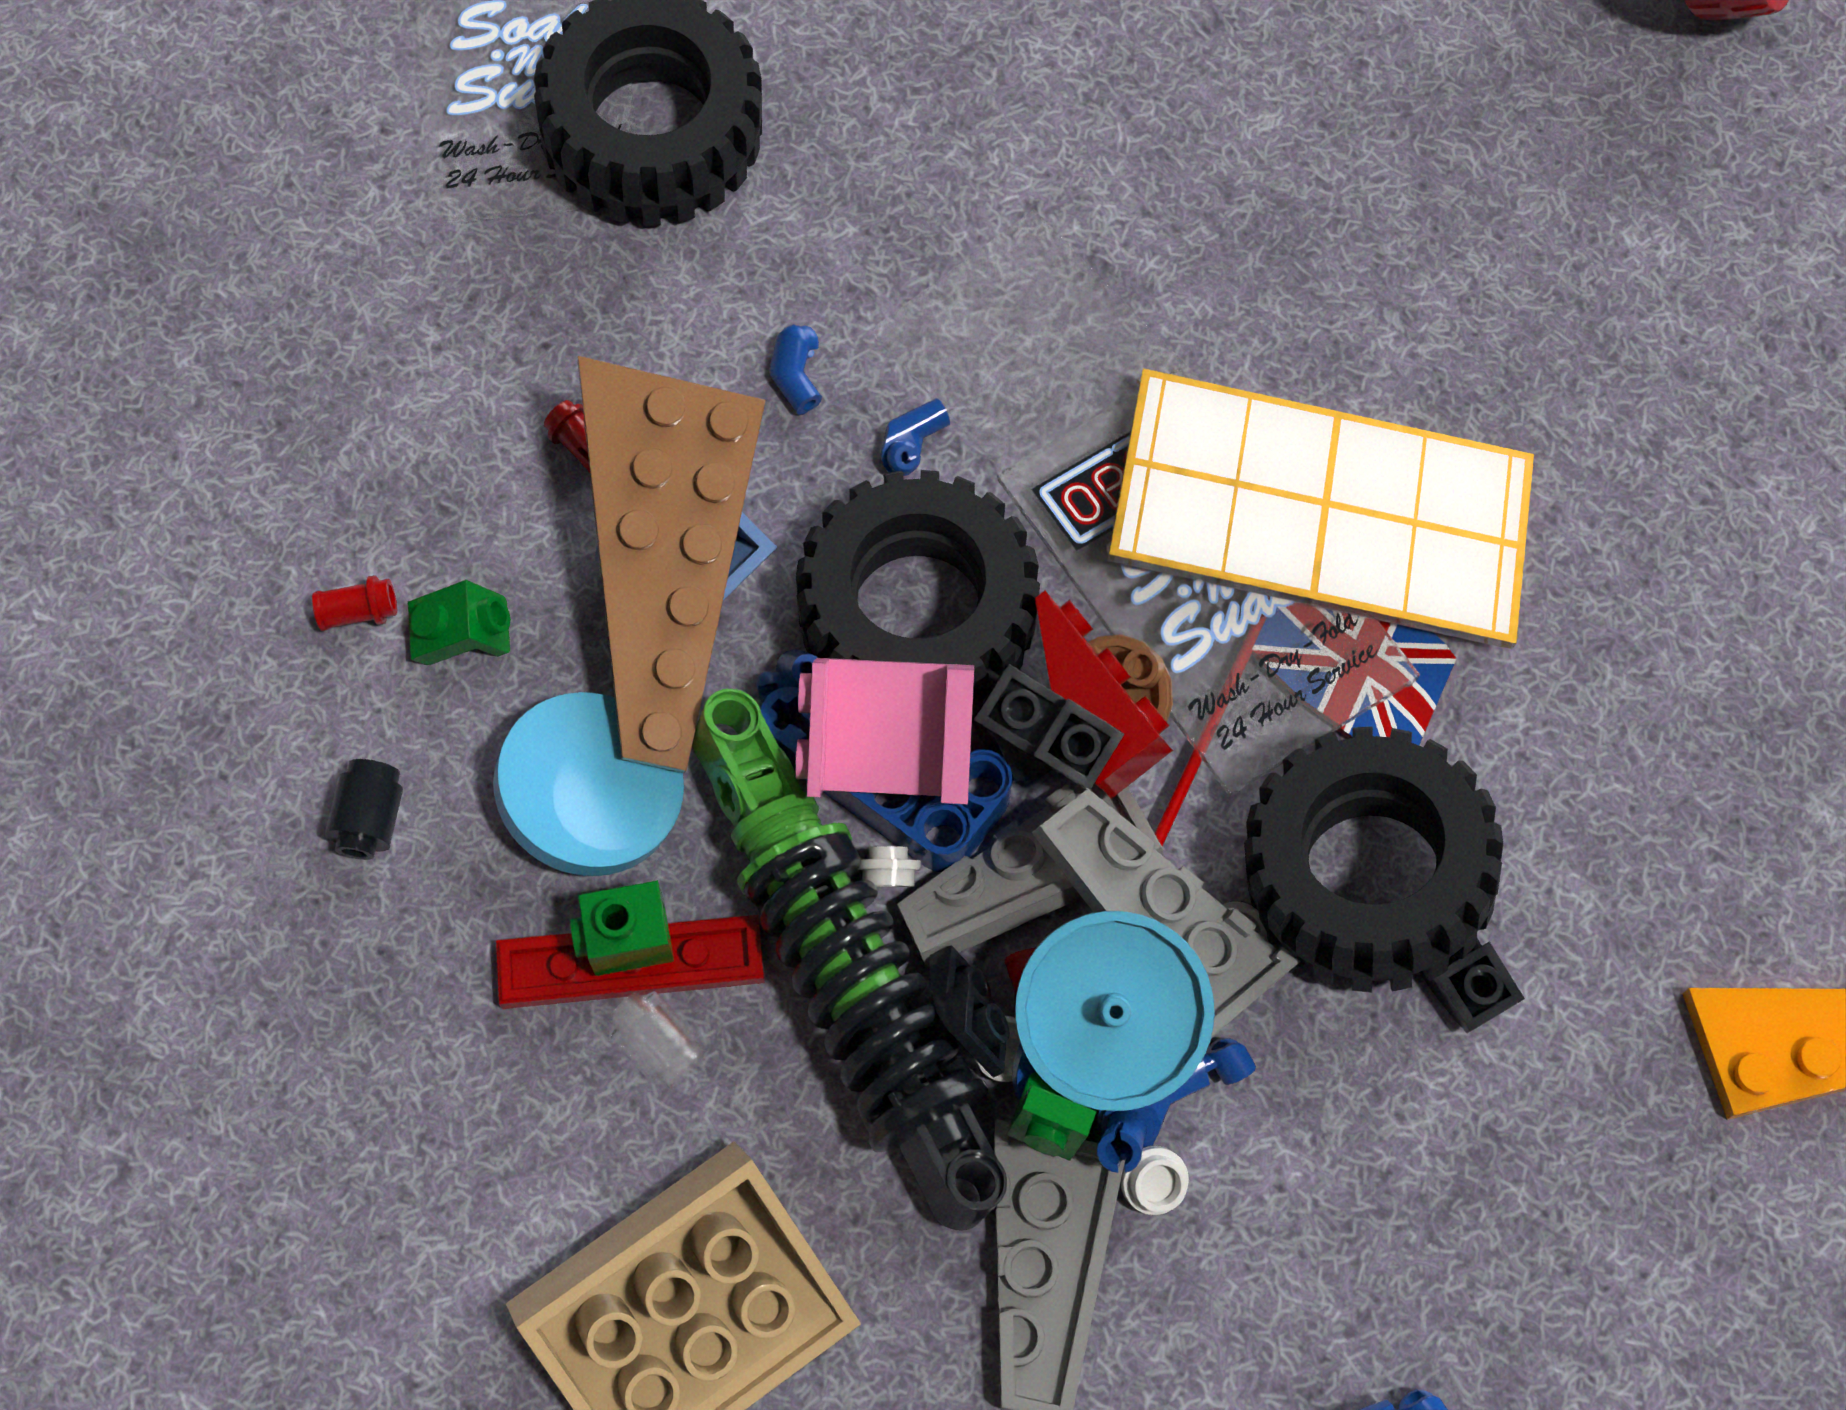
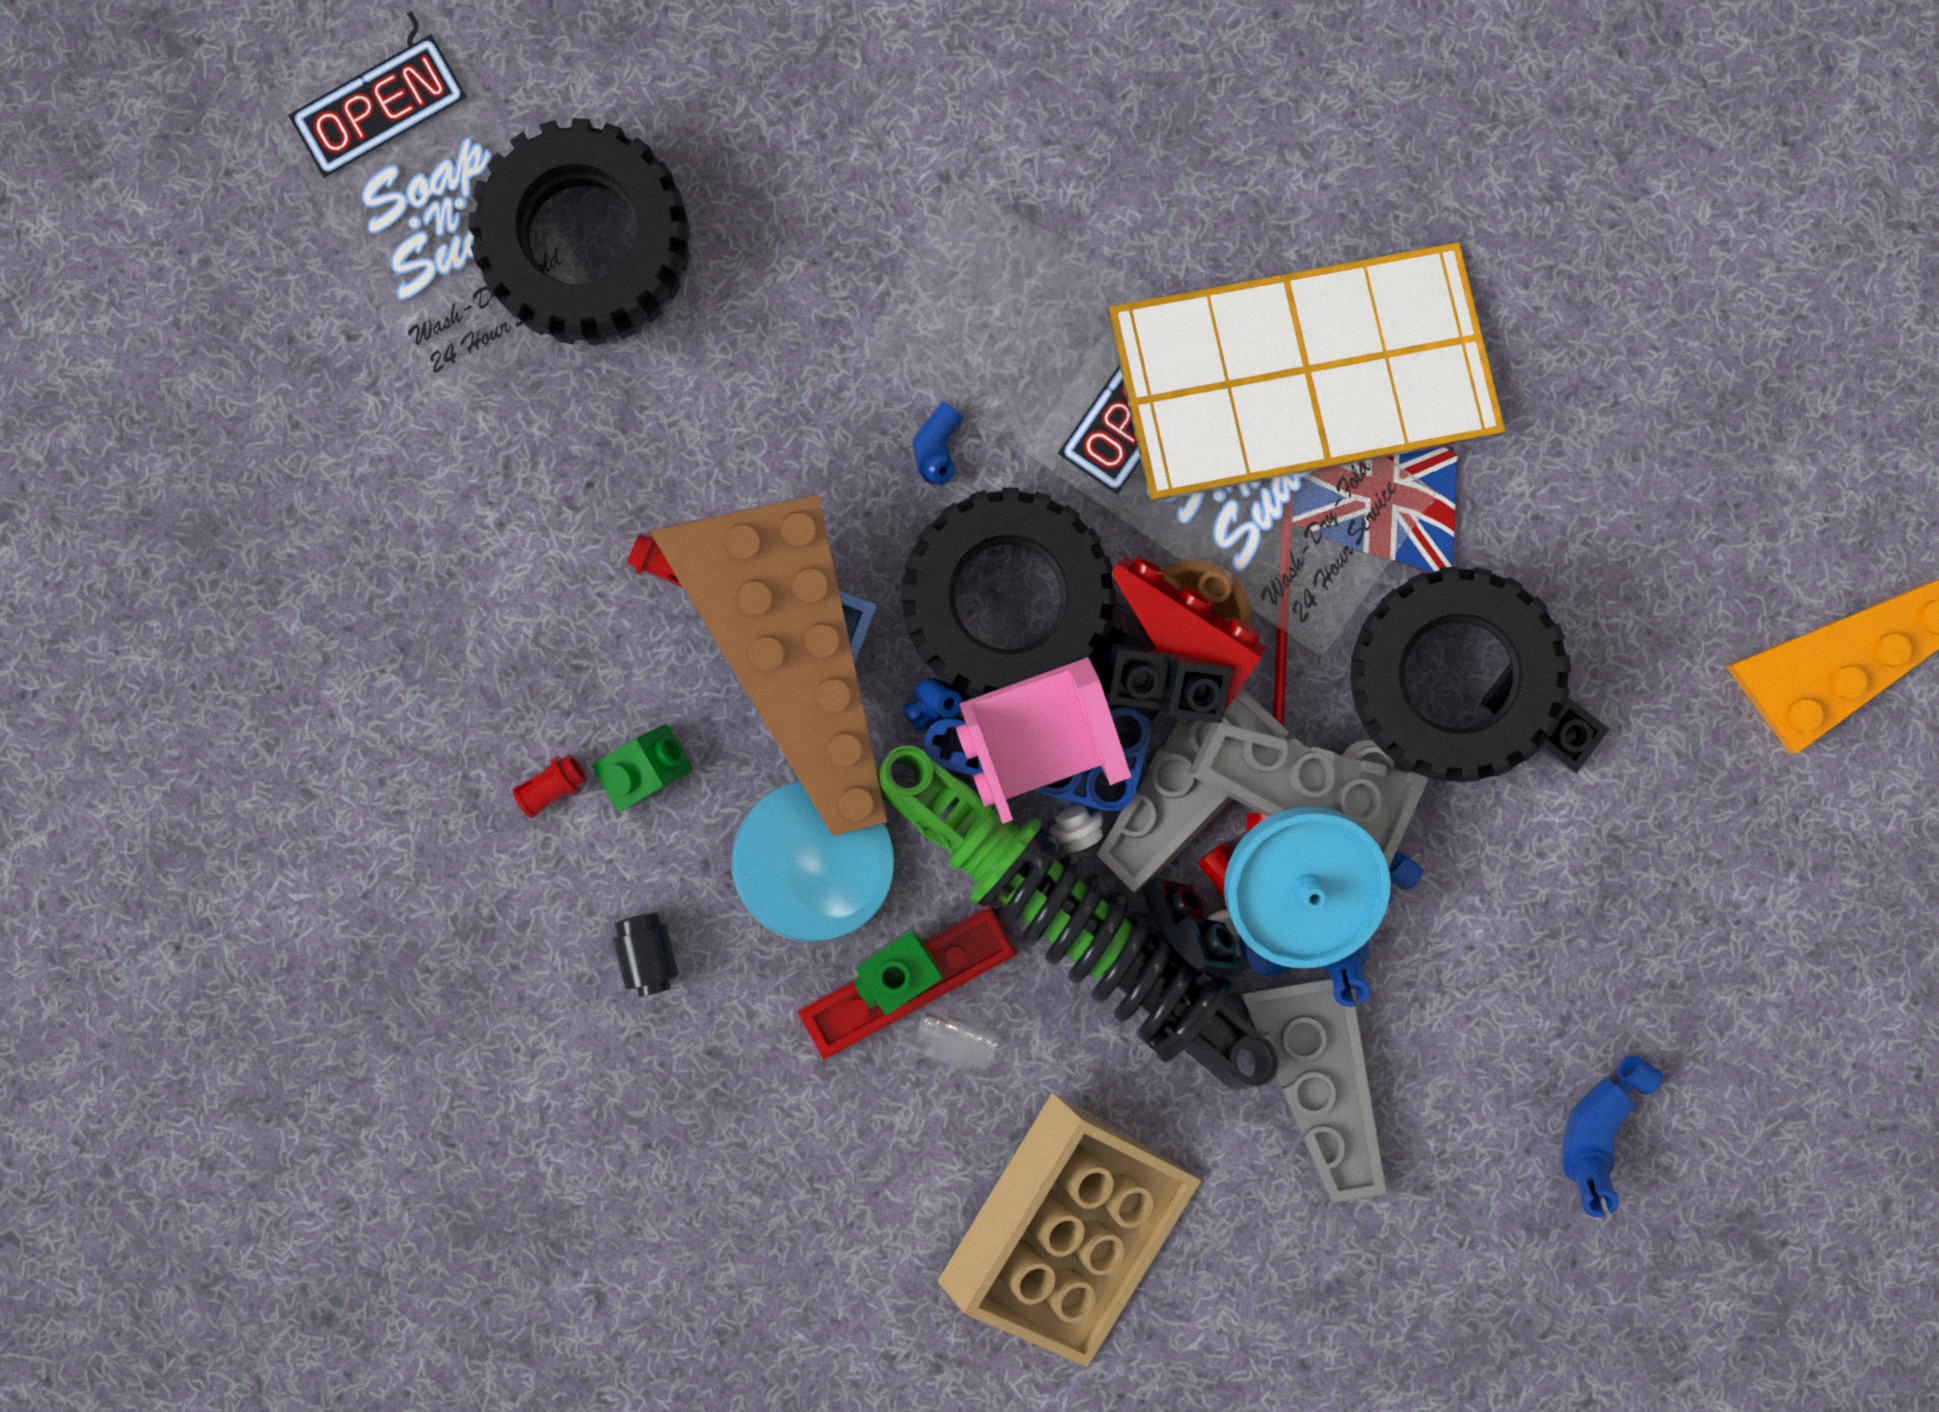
camera: 20 degrees left, 20 degrees up
(787, 367) = (805, 419): blue arm -> none
(1050, 1120) = (1289, 989): green bracket -> none
(1156, 1182) = (1385, 986): white plate -> none

